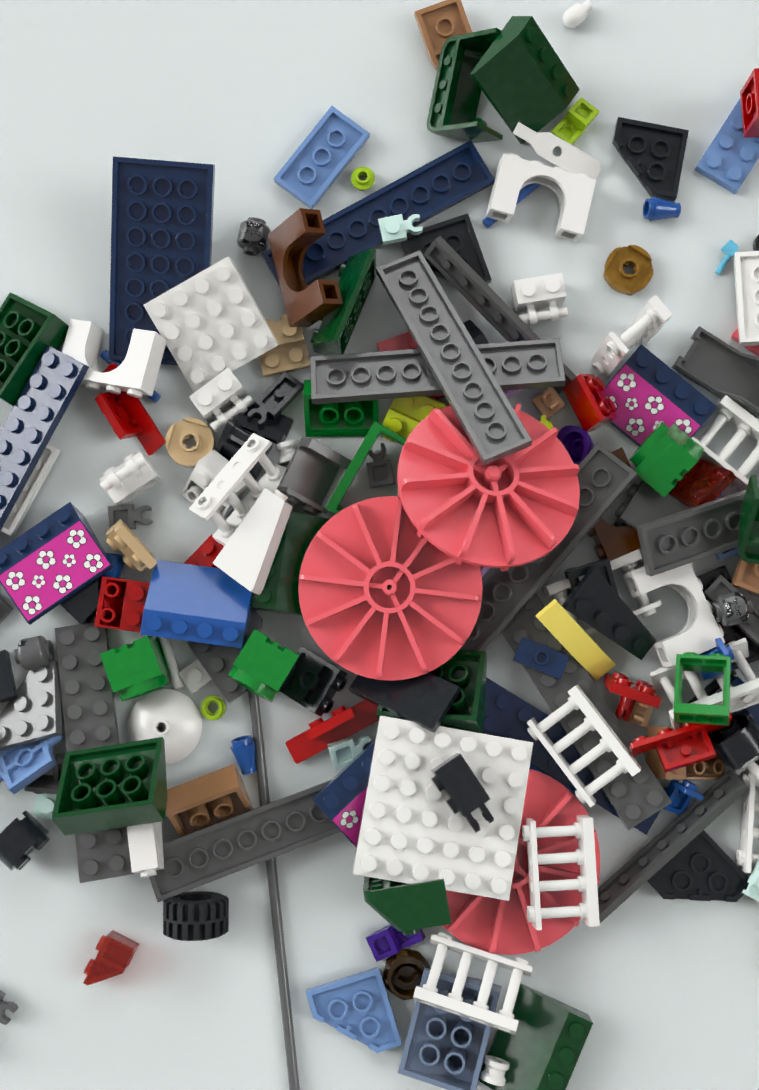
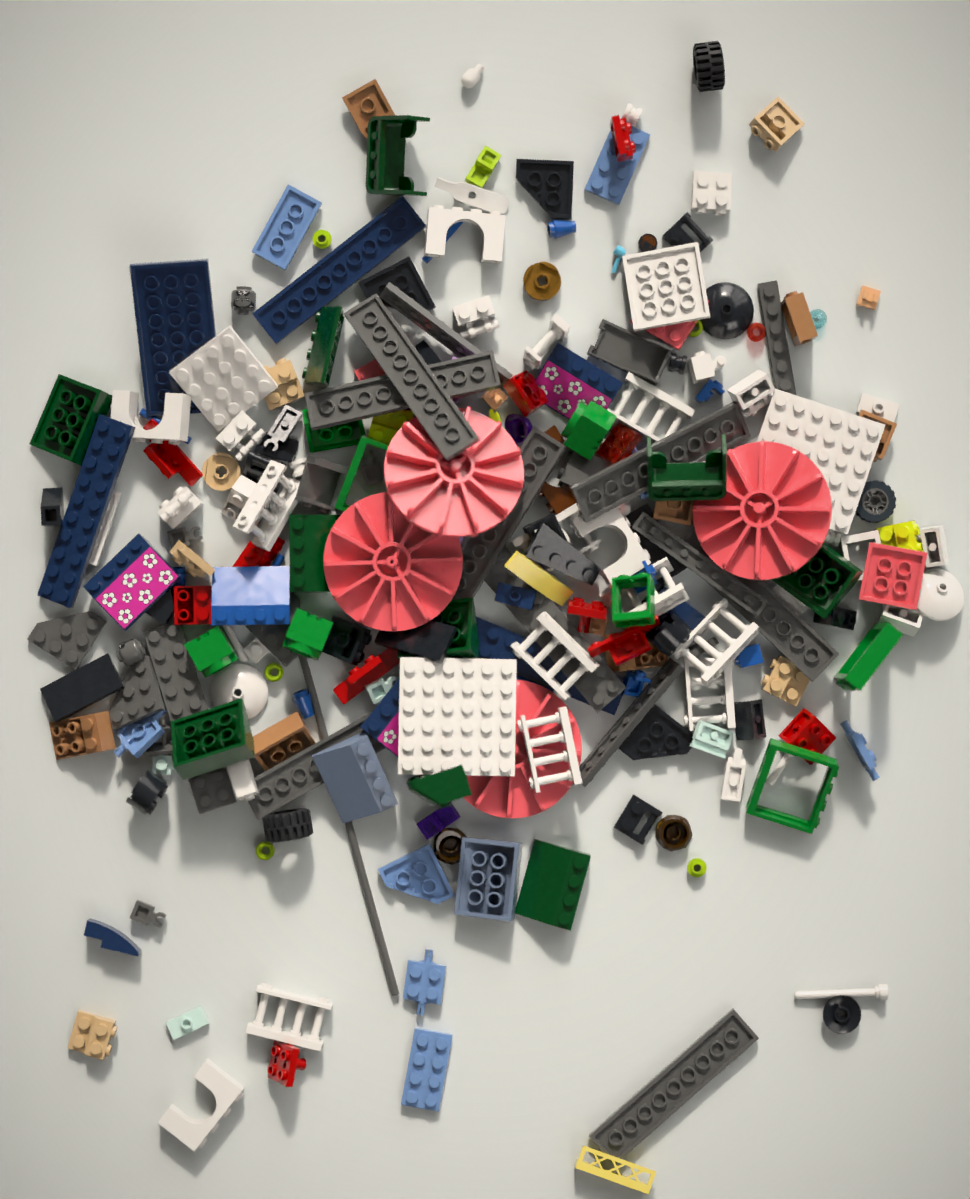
camera: 20 degrees left, 5 degrees up
(112, 959) = (230, 867): clear red slope -> none
(160, 949) = (260, 854): none -> lime plate
(255, 541) = (286, 543): white slope -> none
(288, 247) = (273, 309): reddish brown arch -> none
(295, 866) = (355, 778): none -> sand blue slope
(394, 229) = (354, 279): light aqua plate -> none
(454, 1002) = (505, 858): white fence -> none
(462, 788) = (468, 701): black hinge -> none
(494, 1070) = (524, 901): white wheel -> none
(524, 76) = (436, 145): dark green slope -> none
(652, 972) = (631, 817): none -> black plate
(702, 1004) = (673, 832): none -> dark brown hat
(723, 1052) = (690, 867): none -> lime plate
(732, 608) = (652, 536): dark grey head -> none

